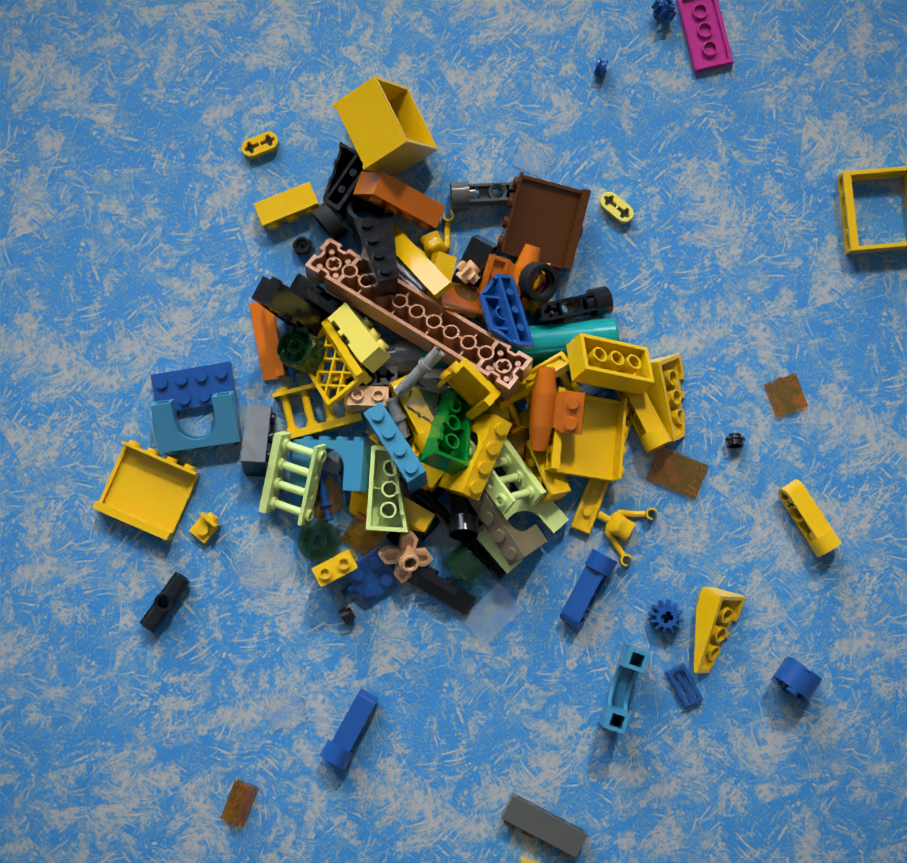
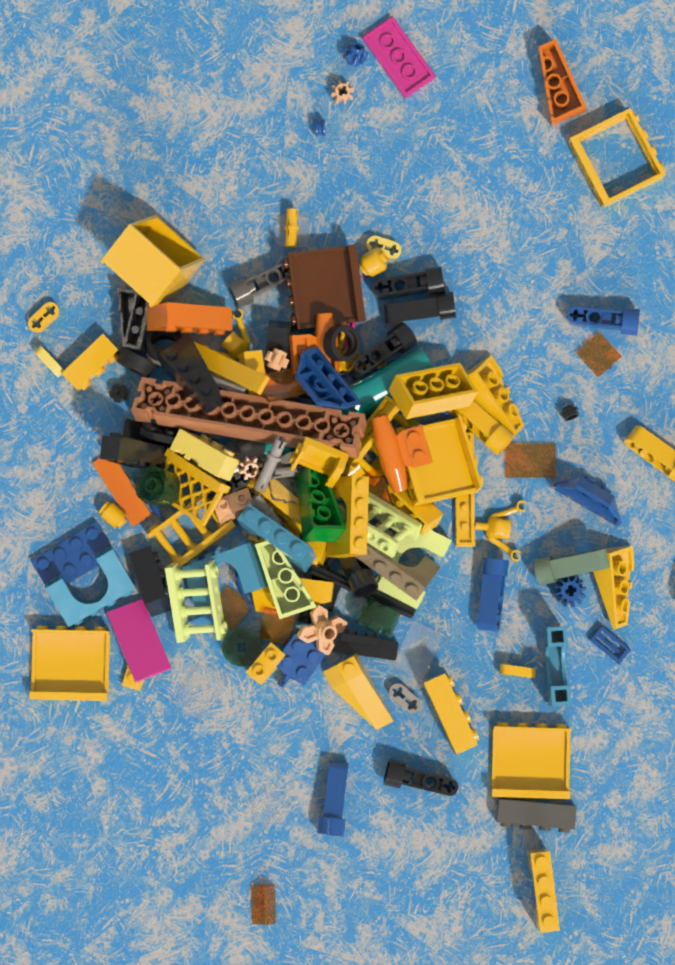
camera: 25 degrees left, 0 degrees up
(157, 612) = (124, 768): black piece -> none
(222, 495) = (138, 640): none -> dark pink tile
(247, 188) = (49, 361): none -> light yellow beam
(248, 362) = (113, 515): none -> yellow brick
(325, 500) = (231, 610): blue piece -> none
(347, 615) = (291, 703): black plate -> none
(392, 368) = (255, 468): none -> light nougat gear
(416, 625) = (357, 689): none -> yellow wedge
(423, 730) = (398, 774): none -> black beam
(464, 653) = (402, 702): none -> light grey beam
(499, 692) = (450, 713): none -> yellow brick
(534, 153) = (291, 228): none -> yellow pin
(559, 770) = (530, 761): none -> yellow panel
(582, 674) = (517, 671): none -> yellow beam
(600, 217) = (373, 262): none -> yellow head
(636, 47) = (344, 97): none -> light nougat gear
(649, 258) = (430, 281): none -> black beam
(650, 286) = (441, 306): none -> black beam
(654, 588) = (550, 569): none -> sand green beam
(723, 532) = (590, 497): none -> blue wedge
(826, 372) = (625, 321): none -> blue beam
(853, 119) = (561, 90): none -> orange wedge

